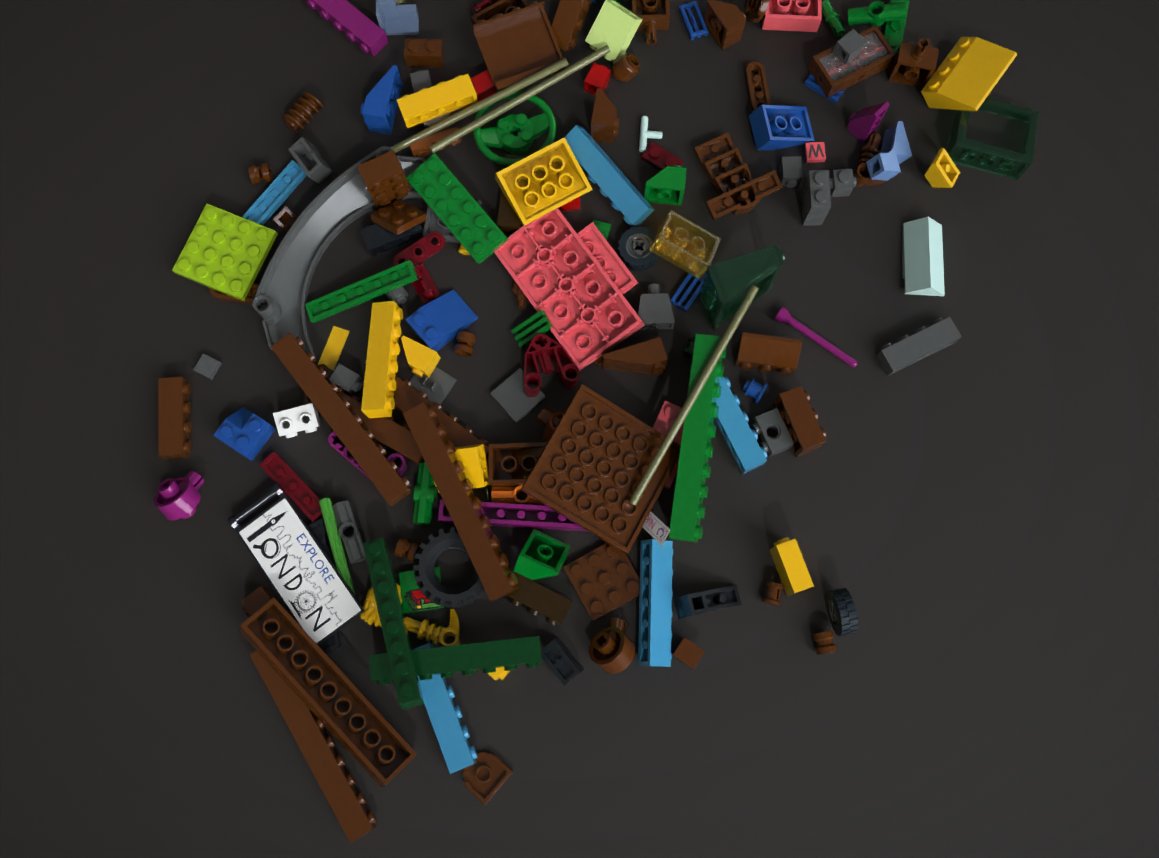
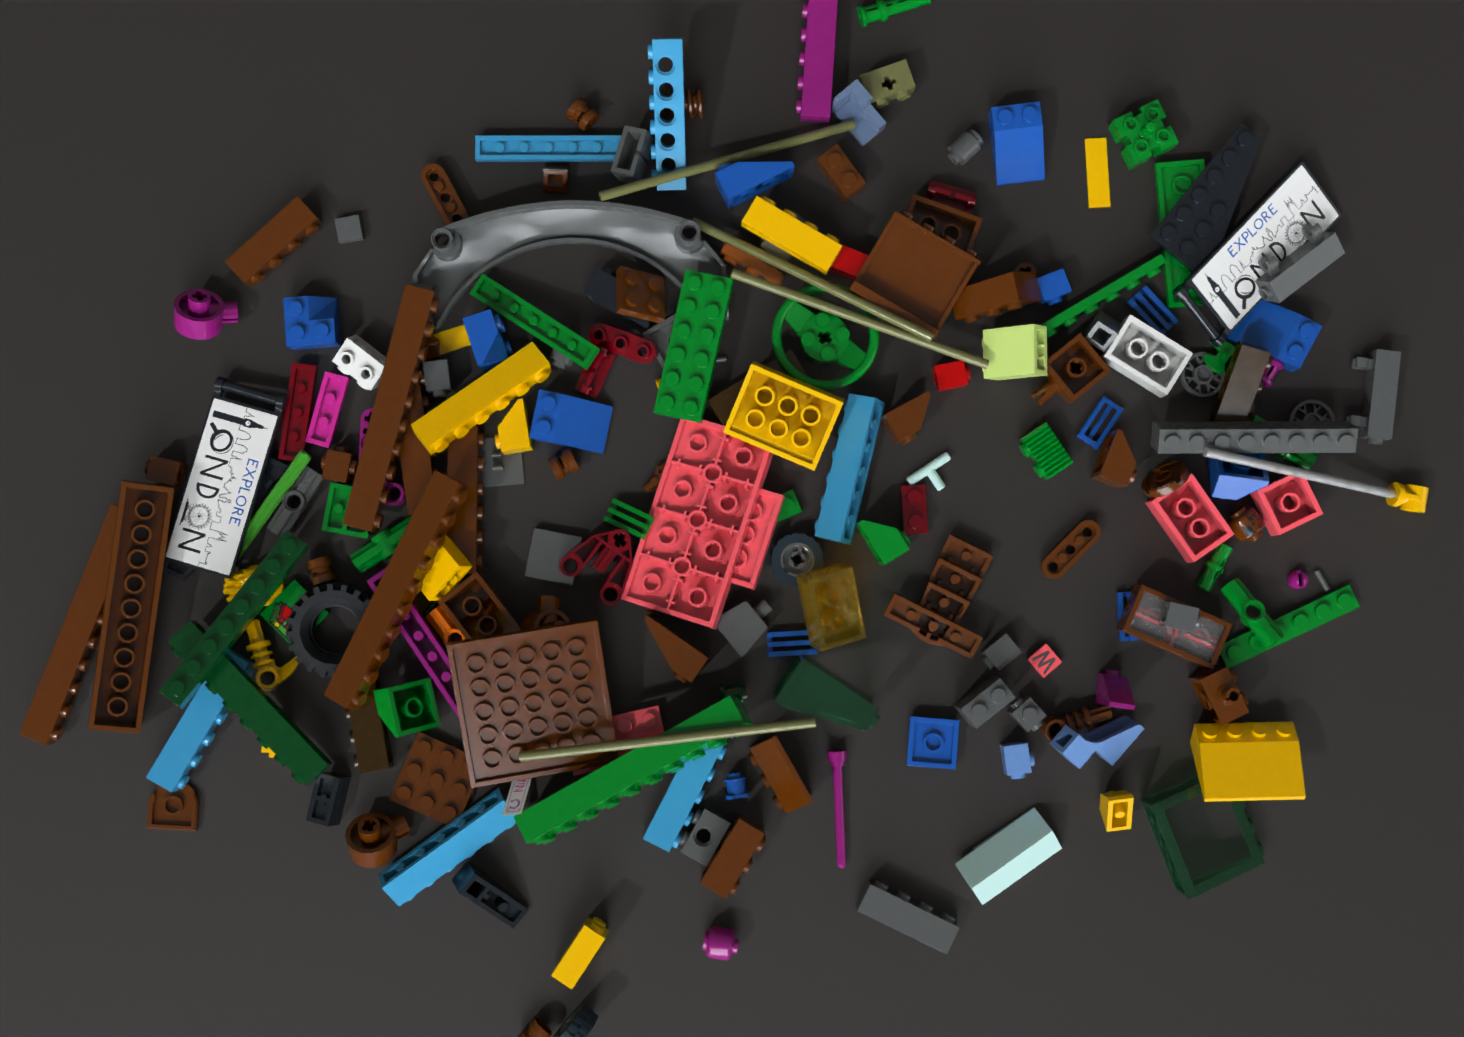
camera: 50 degrees right, 10 degrees up
(225, 252) = (472, 151): lime plate -> none
(267, 79) = (672, 48): none -> dark azure brick
(308, 466) = (327, 410): none -> dark pink plate
(344, 329) = (487, 339): none -> blue slope
(349, 485) = (339, 465): none -> reddish brown brick
(356, 114) = (732, 158): none -> olive piece
(379, 508) = (335, 512): none -> green wing
(384, 179) = (661, 254): reddish brown brick -> none
(420, 80) = (804, 199): dark grey brick -> none
(625, 67) = (985, 395): reddish brown head -> none
(686, 59) = (1044, 451): none -> green brick
(688, 653) = (425, 912): reddish brown panel -> none
(773, 593) = (545, 952): reddish brown bush -> none
(780, 126) = (1044, 606): blue slope -> none
(817, 251) = (932, 742): none -> blue plate
(850, 474) = (720, 943): none -> magenta head
(865, 210) = (1016, 759): none -> medium blue brick

